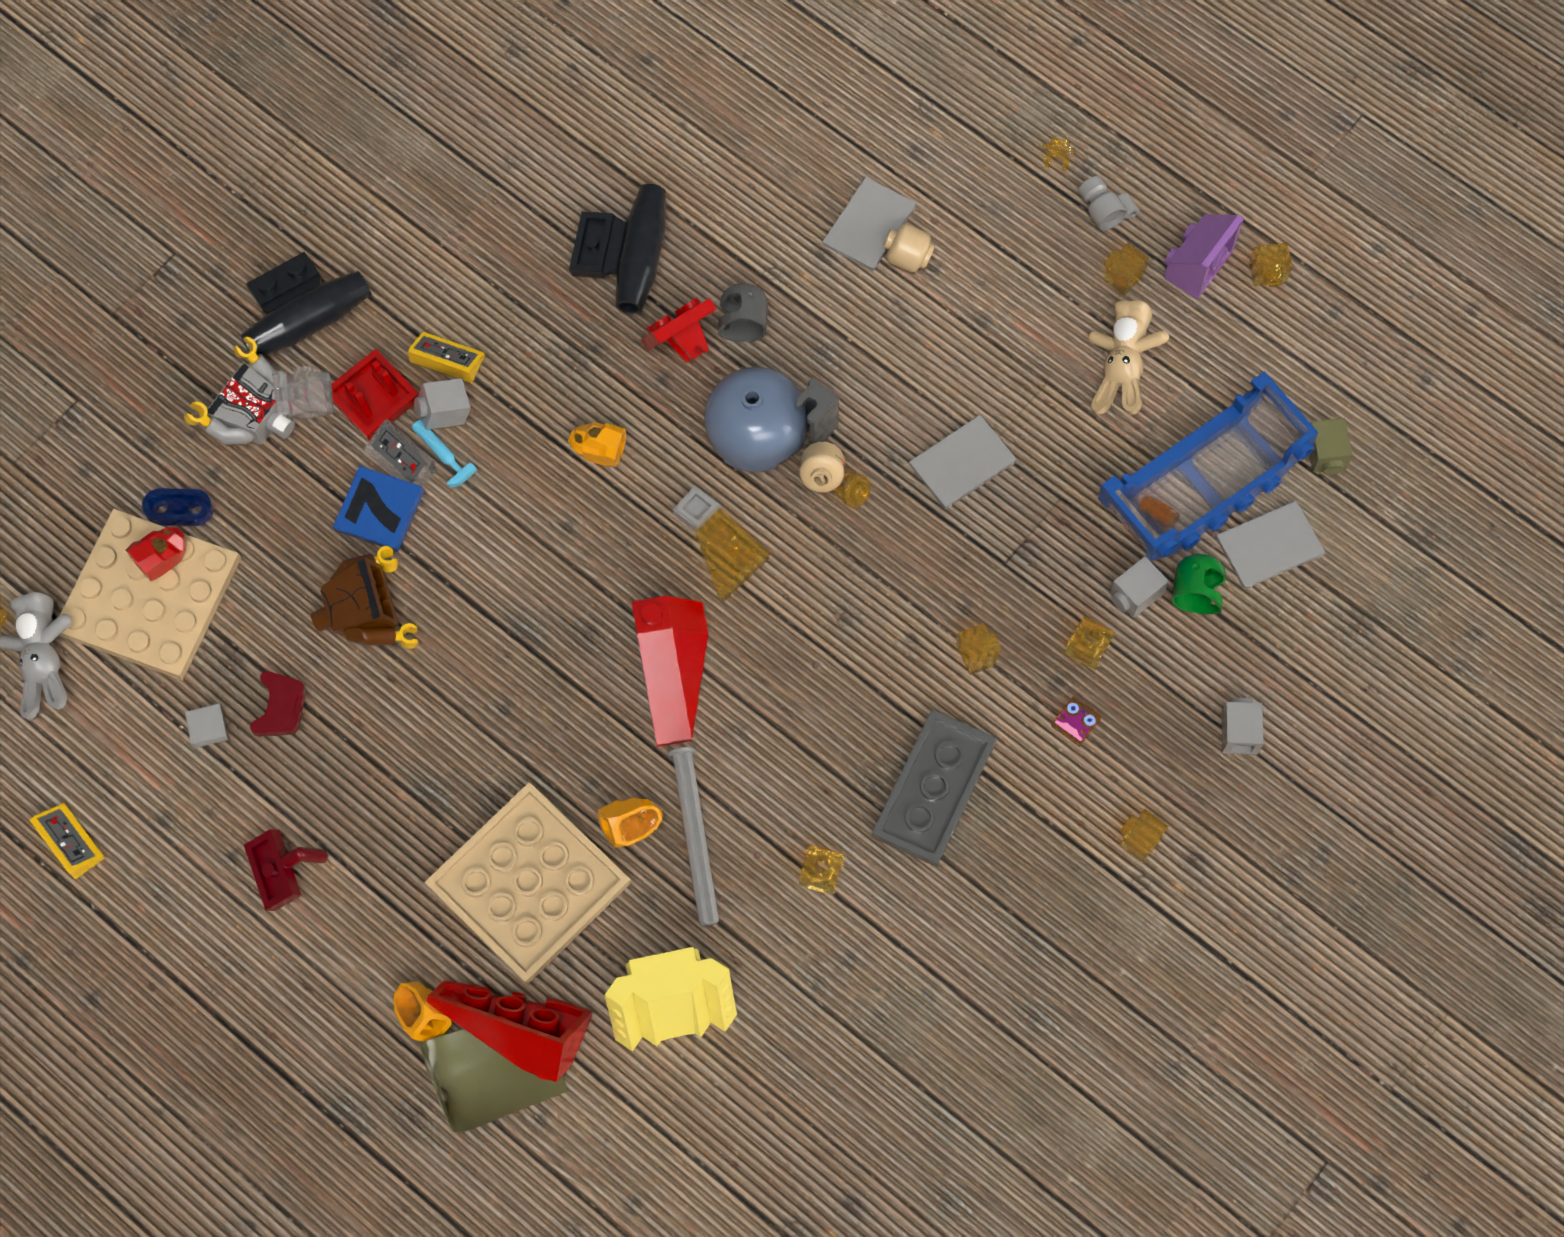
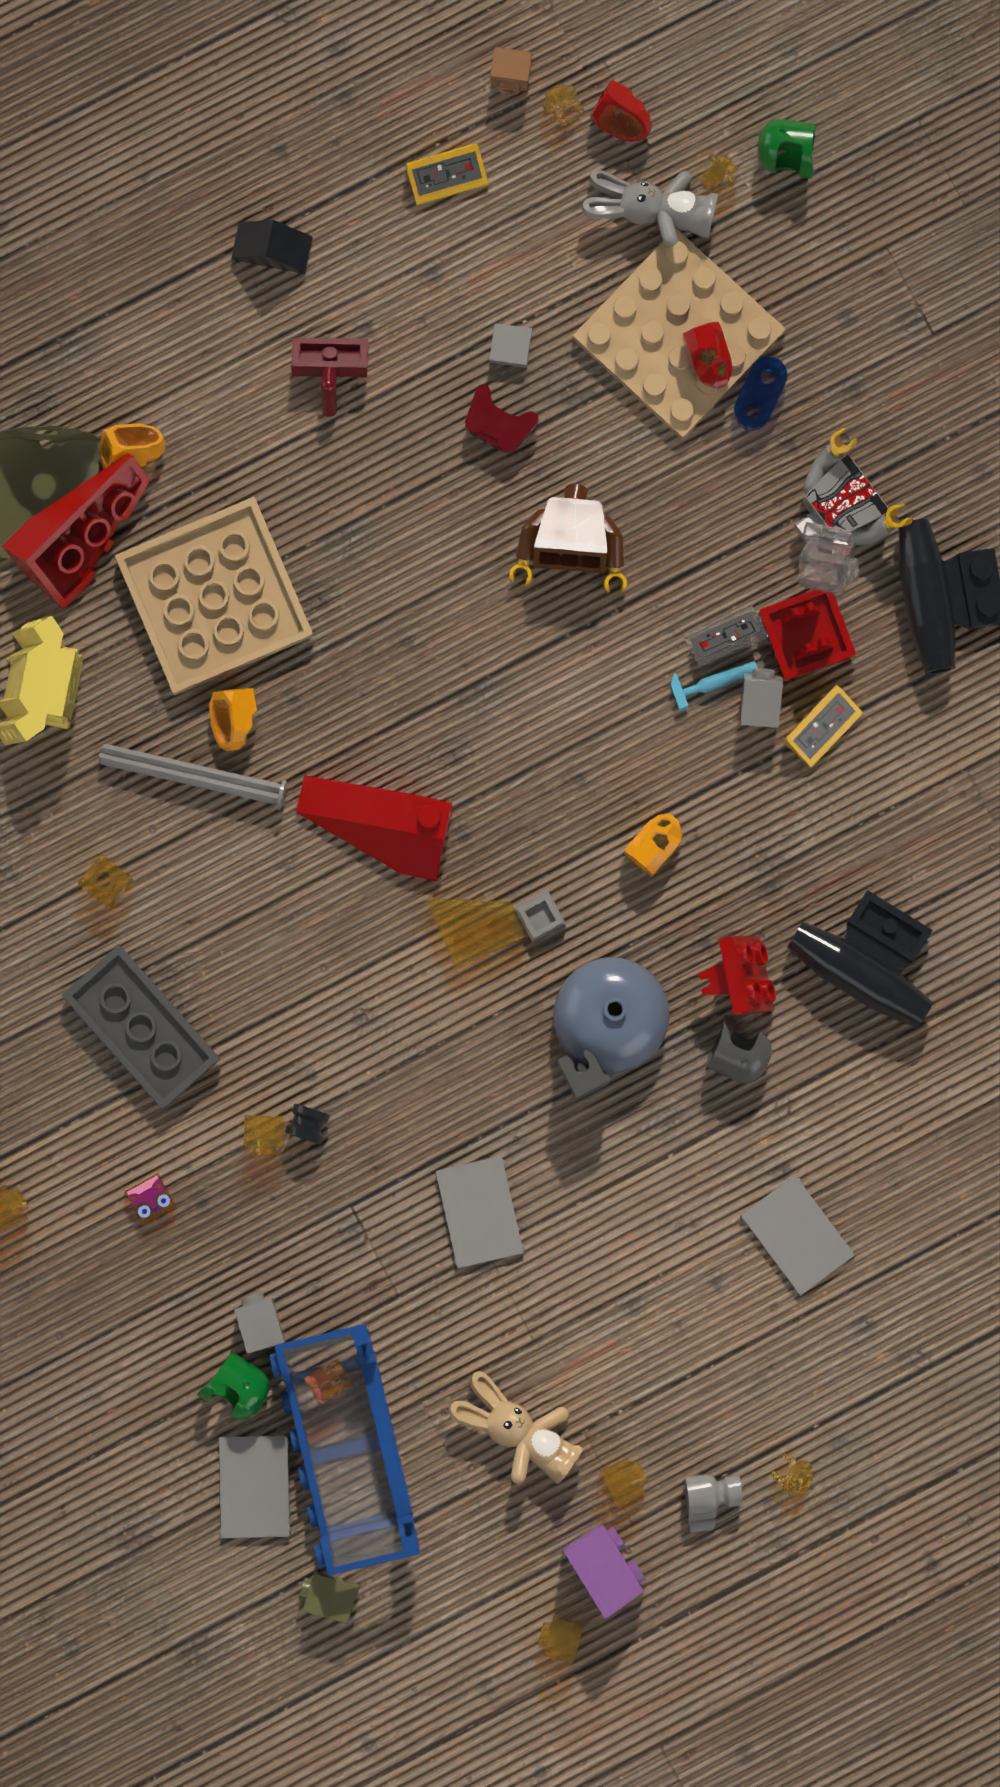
camera: 115 degrees right, 15 degrees up
(186, 967) = (272, 245): none -> black slope
(378, 508) = (674, 594): blue tile -> none
(822, 467) = (525, 1059): tan head -> none
(855, 490) = (488, 1084): clear yellow plate -> none
(908, 247) = (743, 1260): tan head -> none
(954, 617) = (307, 1123): none -> black wheel
(1087, 652) = (237, 1253): clear yellow plate -> none
(1242, 727) = (71, 1359): light grey brick -> none

